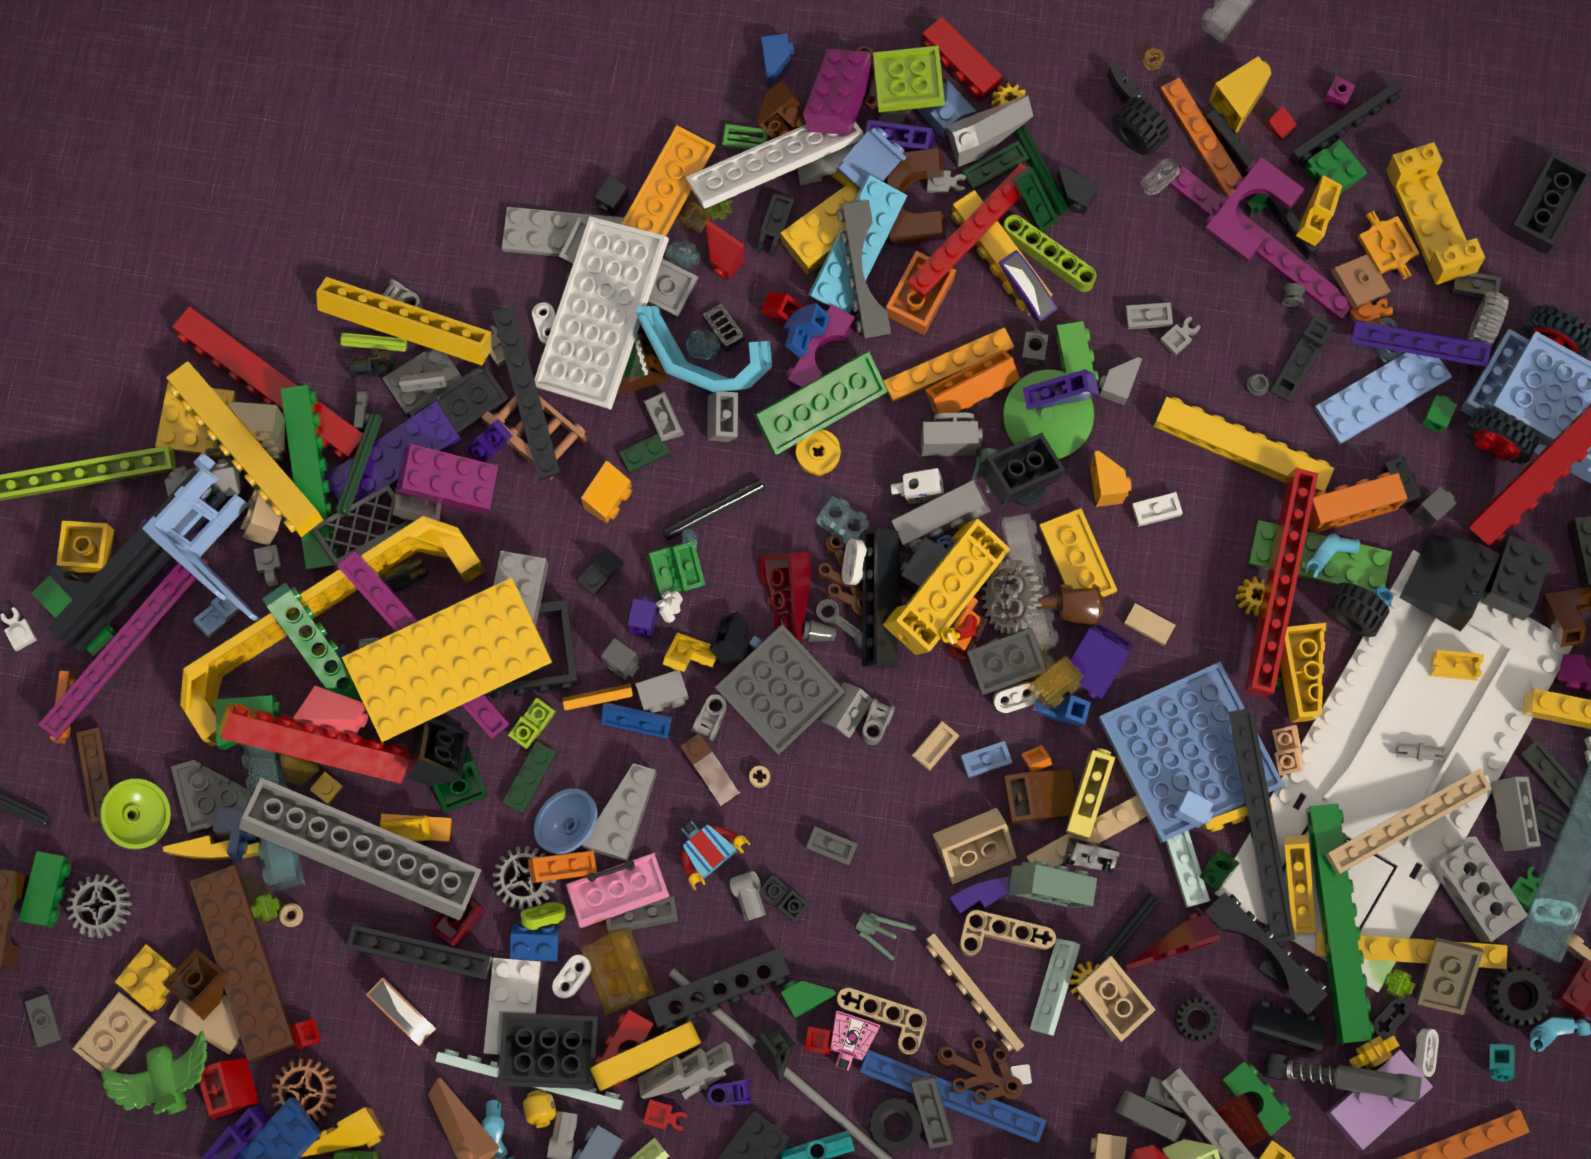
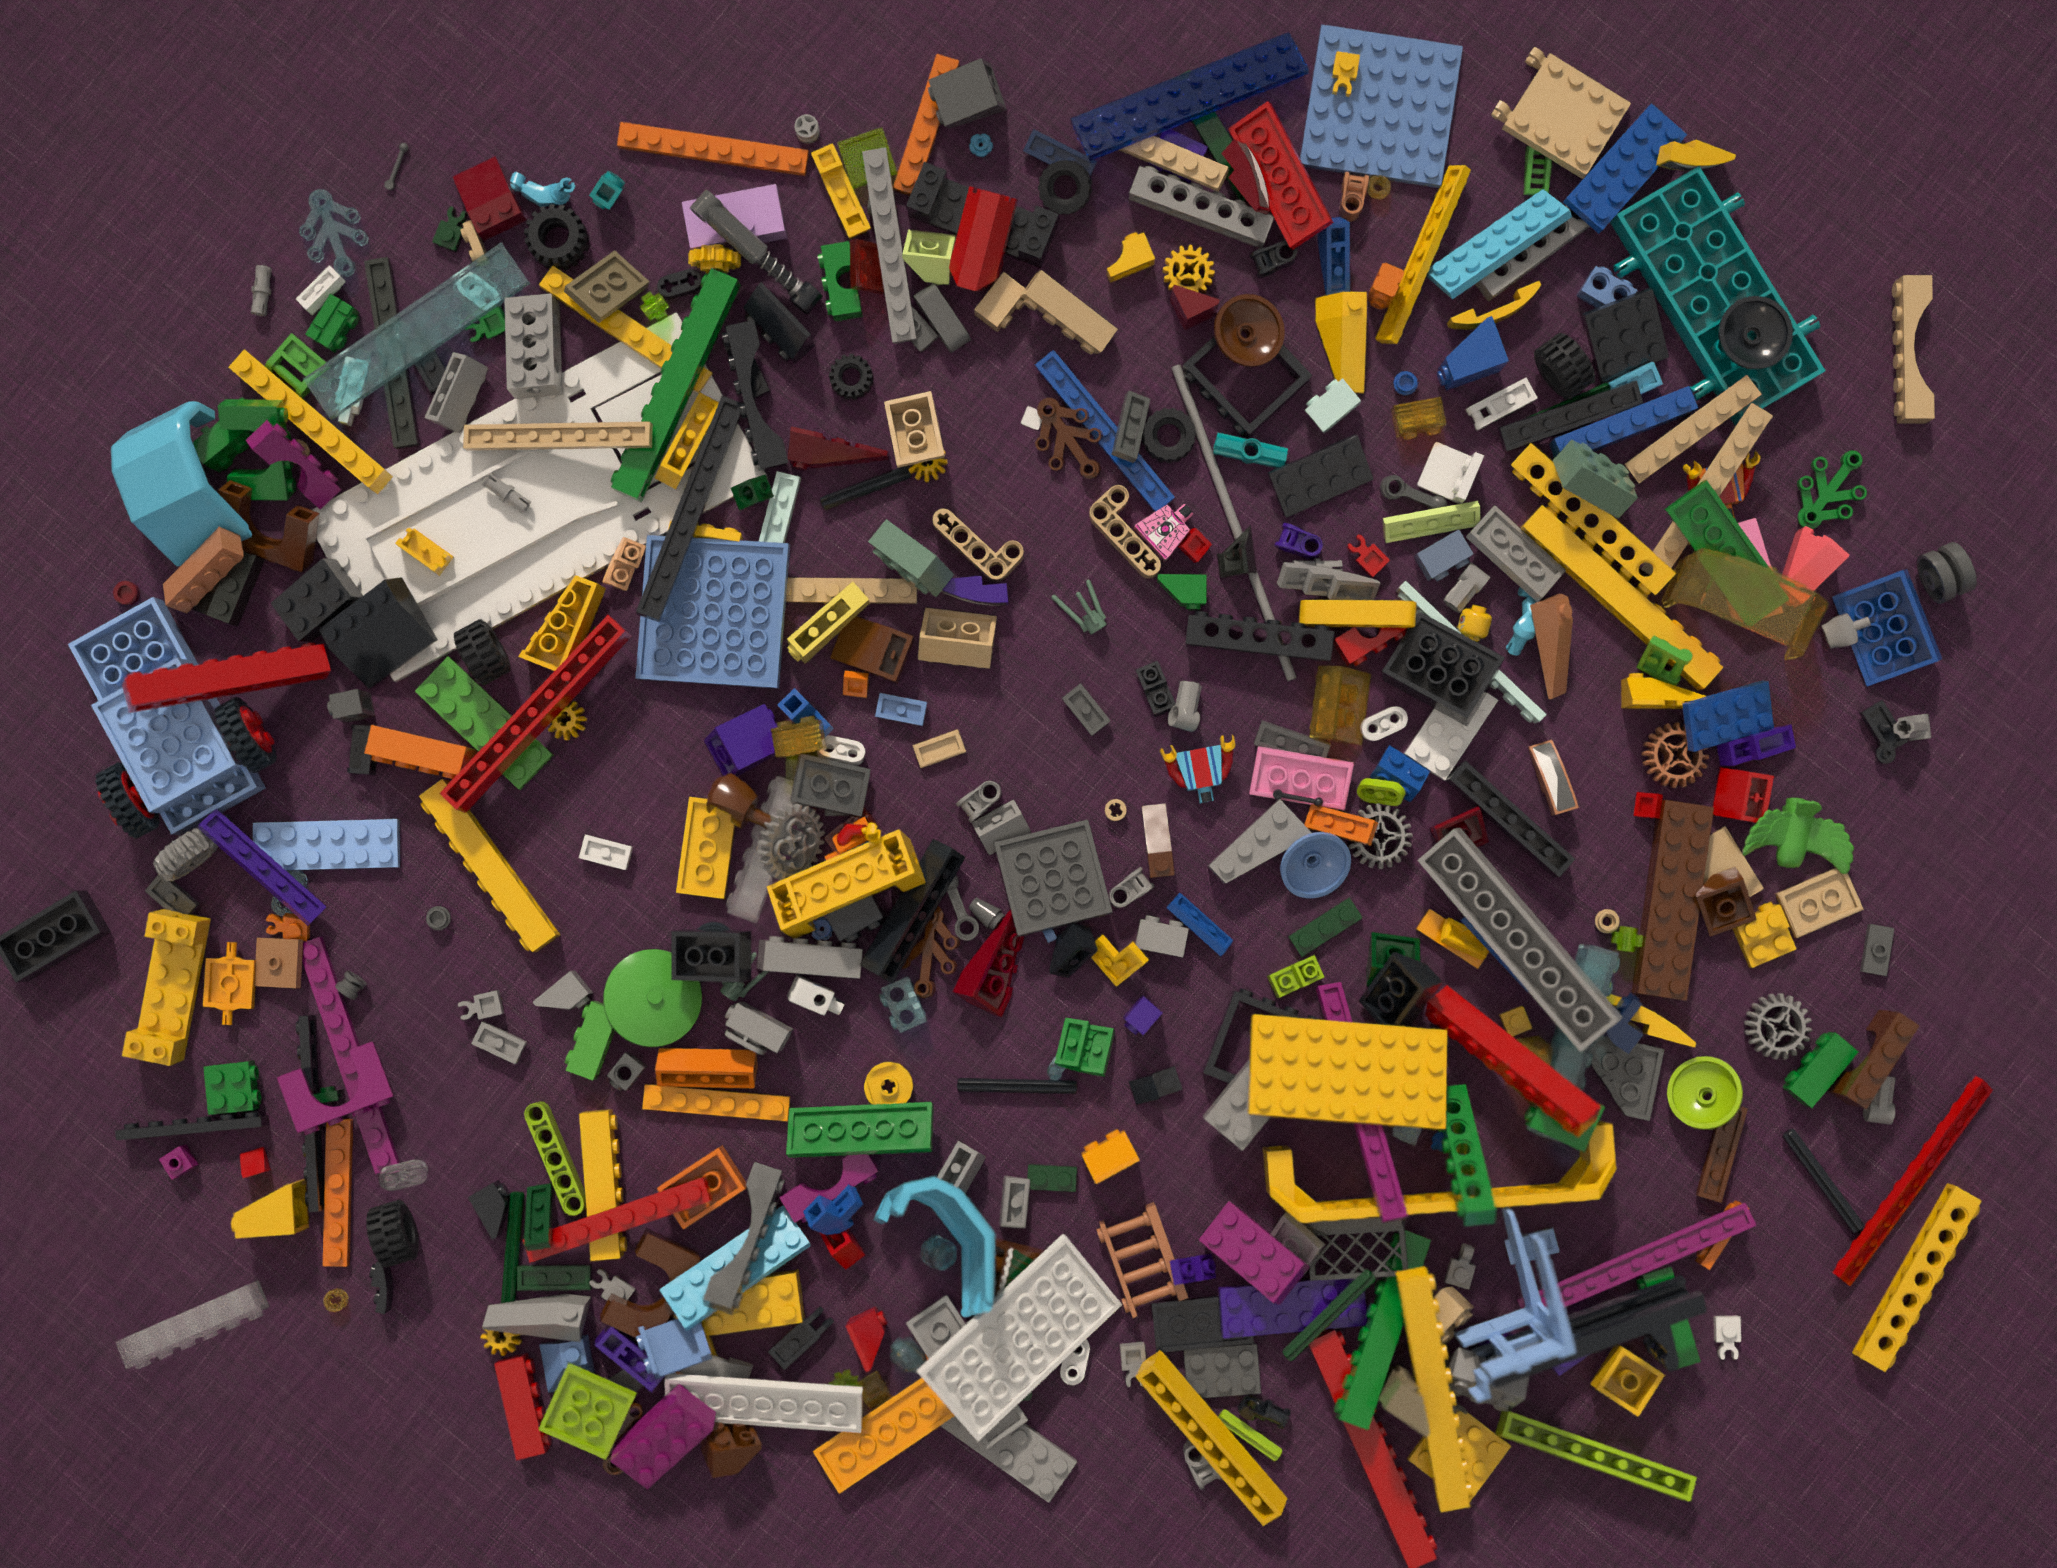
camera: 140 degrees left, 10 degrees up
(332, 710) = (1478, 1084): coral slope -> none
(361, 412) = (1298, 1368): dark grey plate -> none
(399, 577) = (1344, 1184): black hinge -> none
(423, 381) = (1224, 1366): light grey slope -> none
(526, 393) = (1133, 1298): black plate -> none
(597, 697) = (1223, 966): light orange tile -> none
(611, 196) = (943, 1455): black brick -> none
(620, 660) = (1184, 986): dark grey brick -> none
(669, 605) = (1110, 1013): white piece -> none
(732, 341) = (907, 1241): black slope -> none
(743, 129) = (795, 1456): bright green tile -> none
(776, 55) = (700, 1512): blue slope -> none
(853, 562) = (917, 958): white plate -> none
(980, 1002) = (1034, 498): tan plate -> none
(1027, 286) = (598, 1132): slope -> none
(1055, 986) = (959, 474): light aqua plate -> none
(1061, 390) = (629, 1009): dark purple slope -> none
(1091, 855) = (858, 570): hinge -> none
(1108, 481) = (635, 902): light orange slope -> none
(1149, 624) = (678, 749): tan tile -> none
(1194, 809) = (743, 554): light blue brick -> none
(1301, 359) = (383, 918): black slope -> none
(1319, 211) = (274, 1051): yellow slope -> none
(1328, 548) = (474, 723): medium azure arm -> none
(1385, 594) = (450, 653): dark azure plate -> none
(1426, 1051) = (667, 236): white plate -> none
(1439, 414) = (287, 794): green brick -> none

